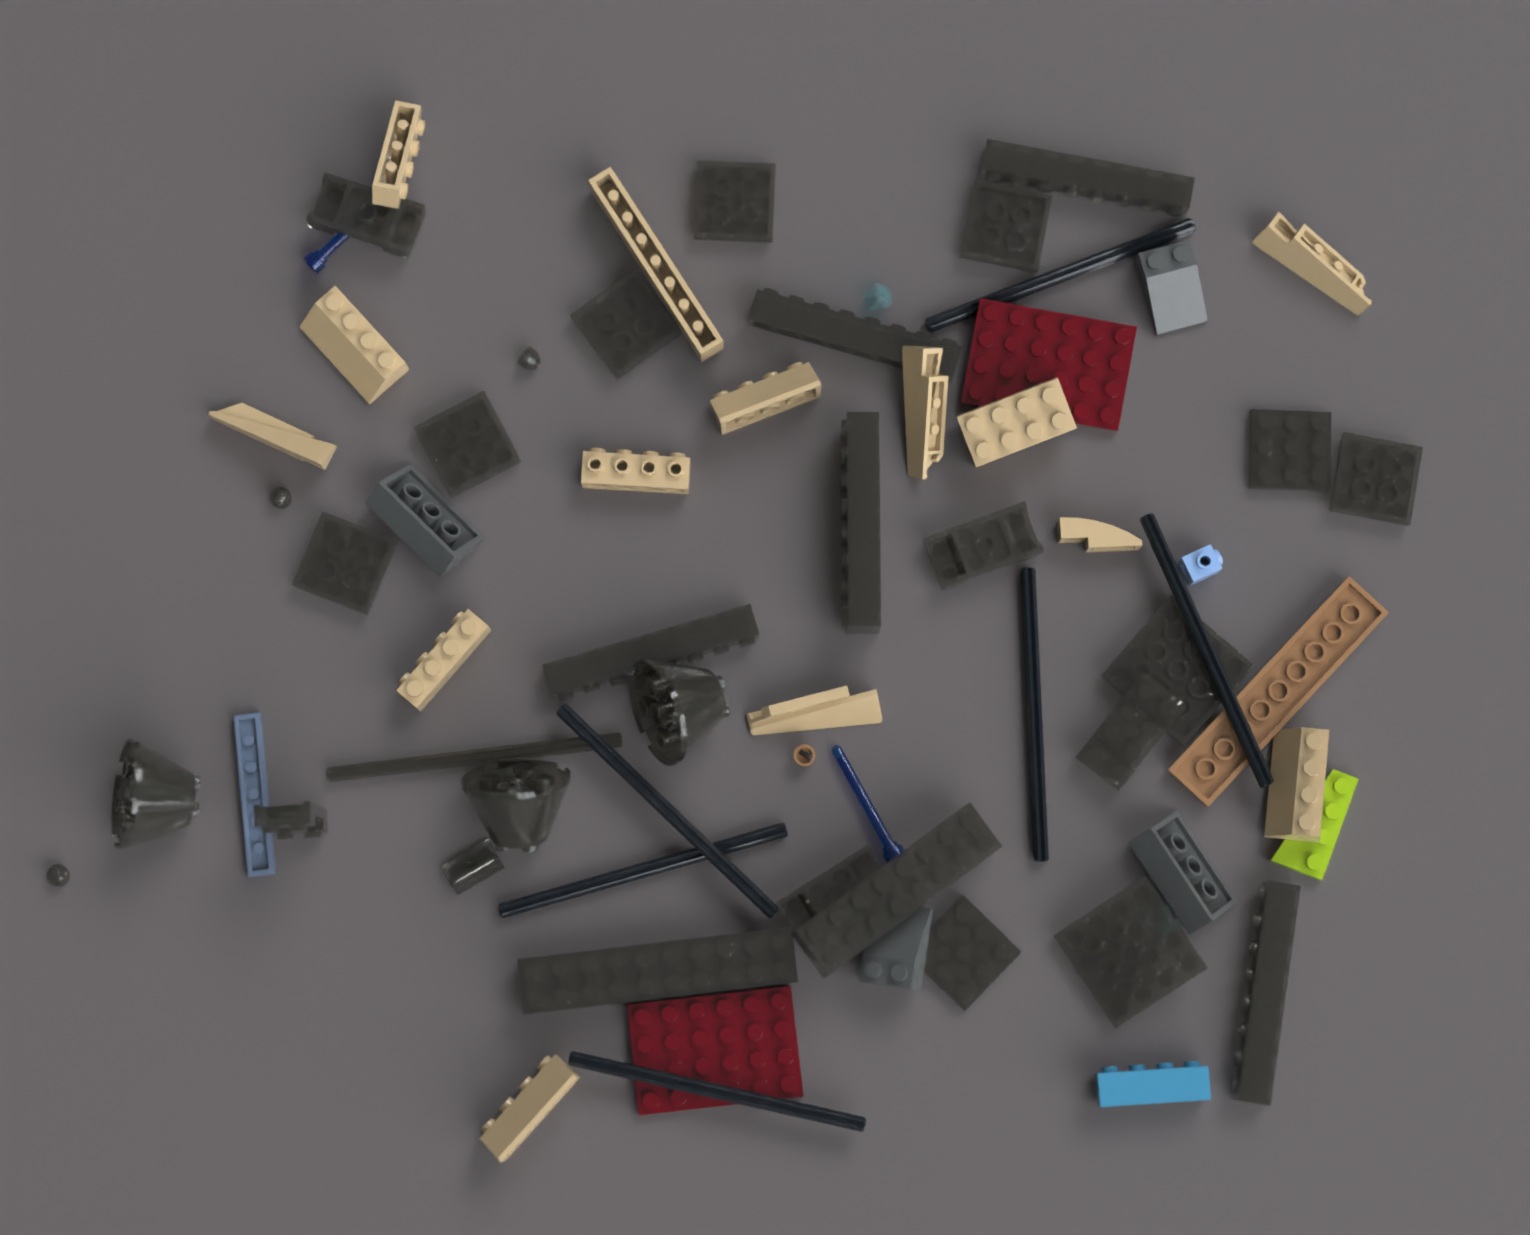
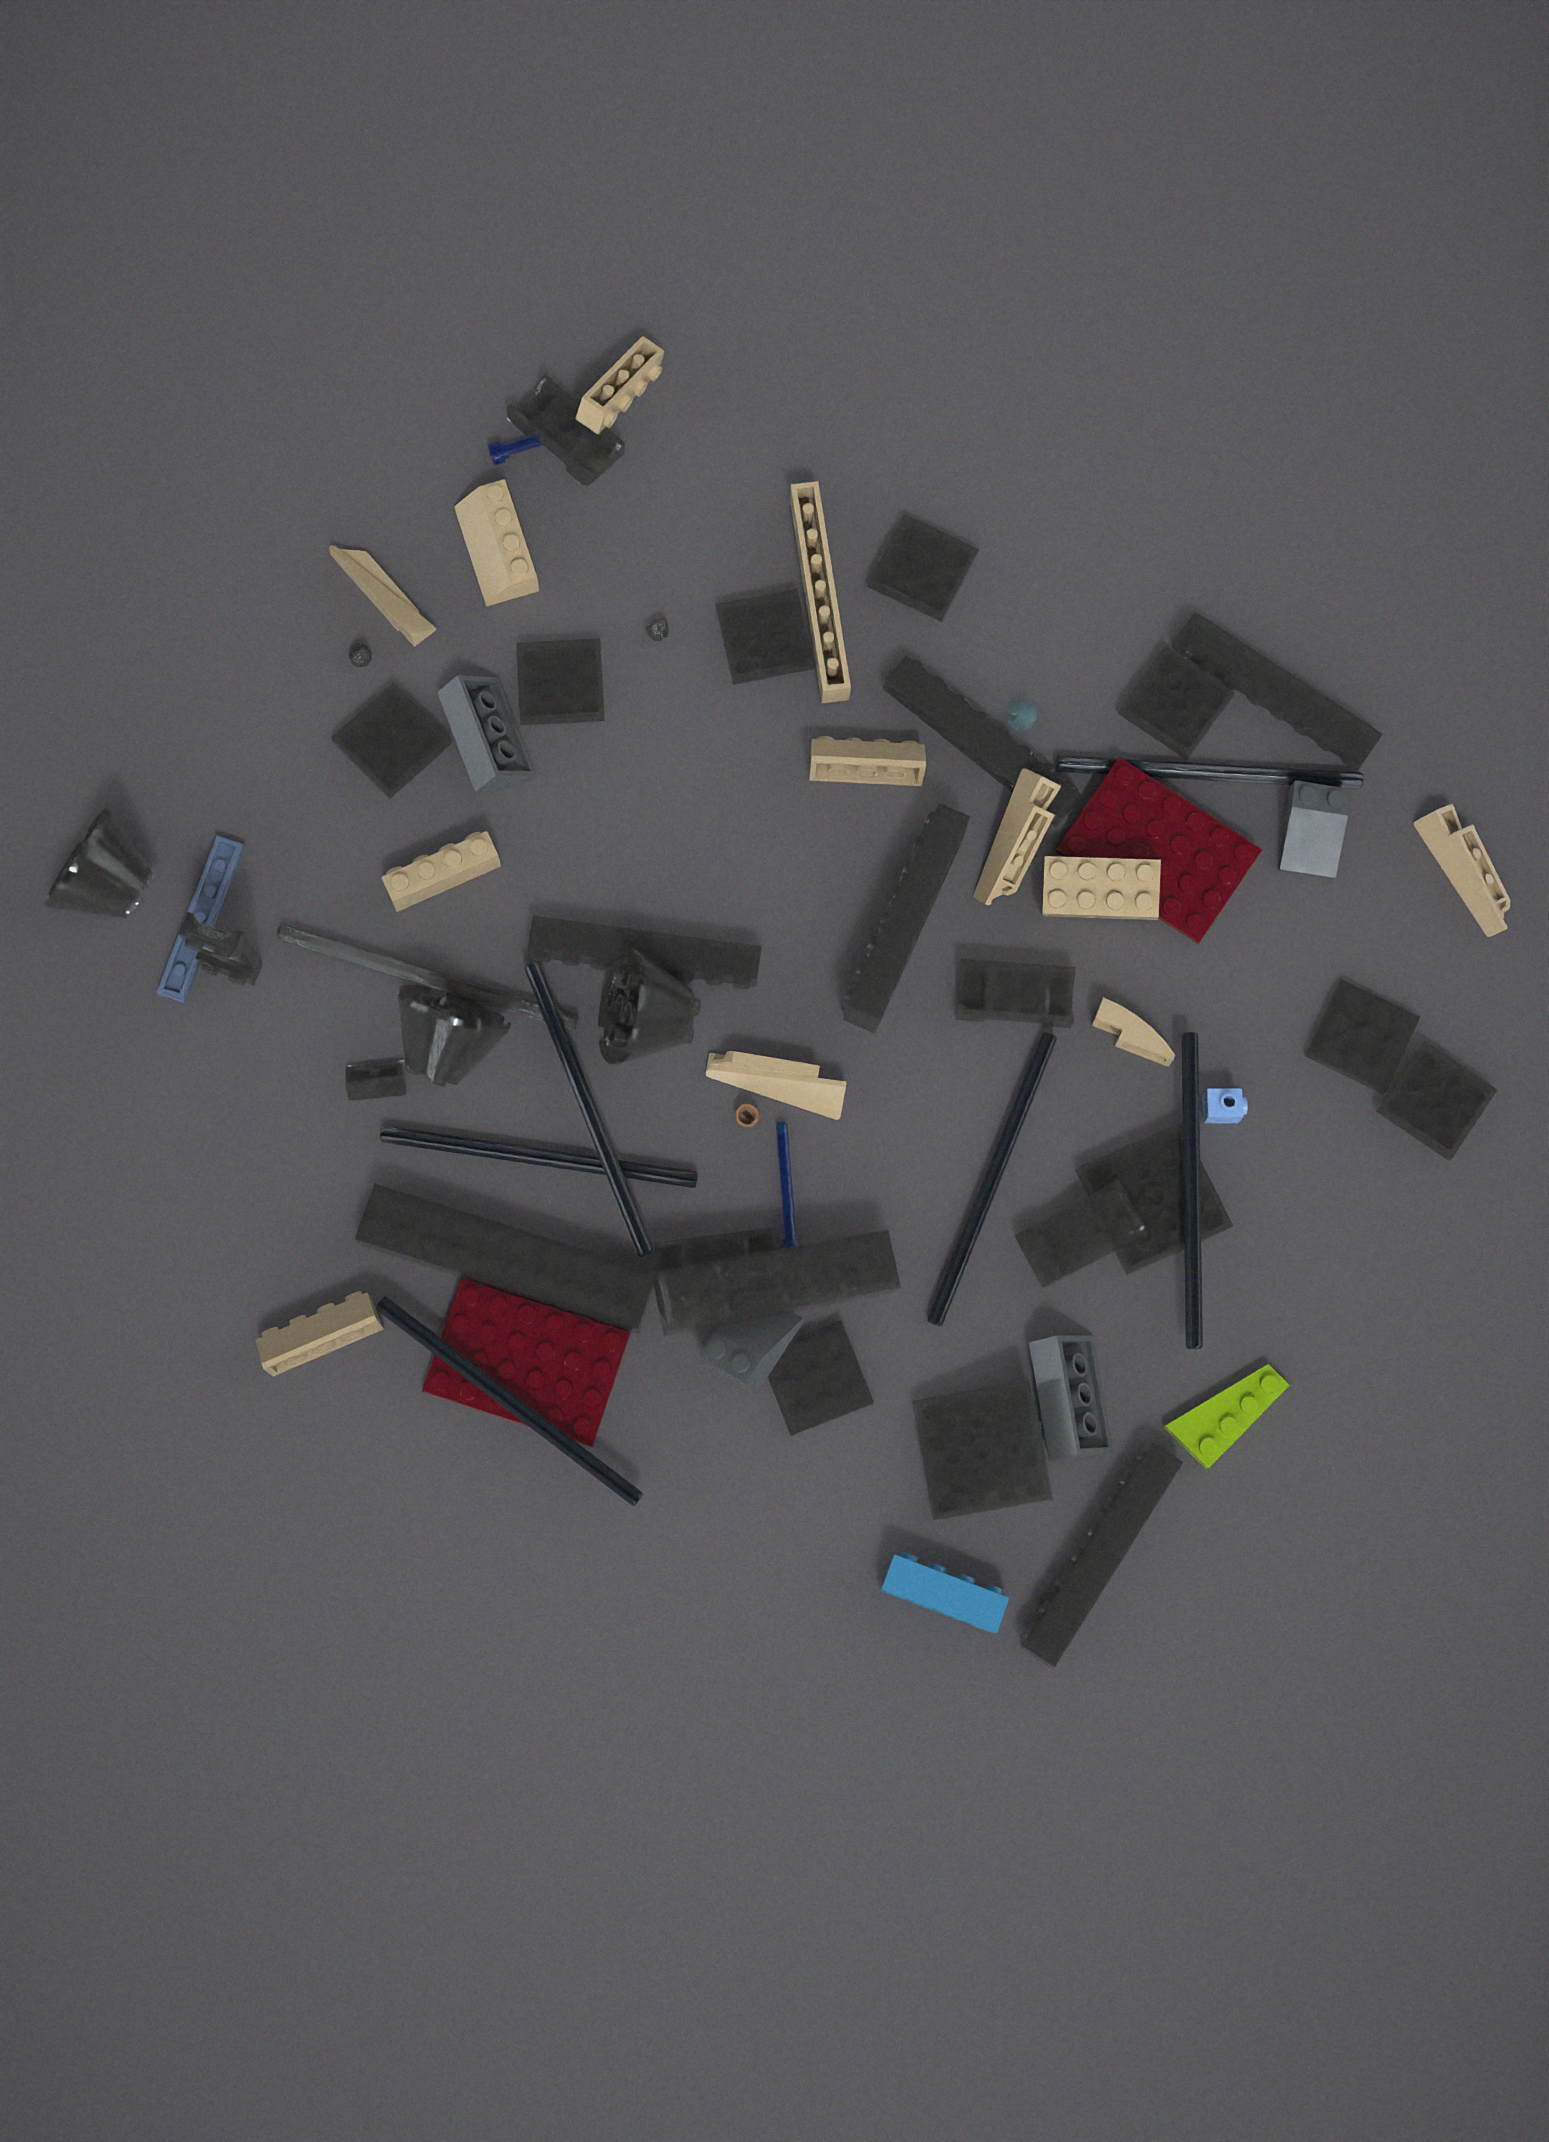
camera: 20 degrees right, 5 degrees down
(635, 471) = (709, 776): tan brick -> none
(1280, 689) = (1249, 1262): medium nougat plate -> none
(1298, 784) = (1225, 1361): tan slope -> none

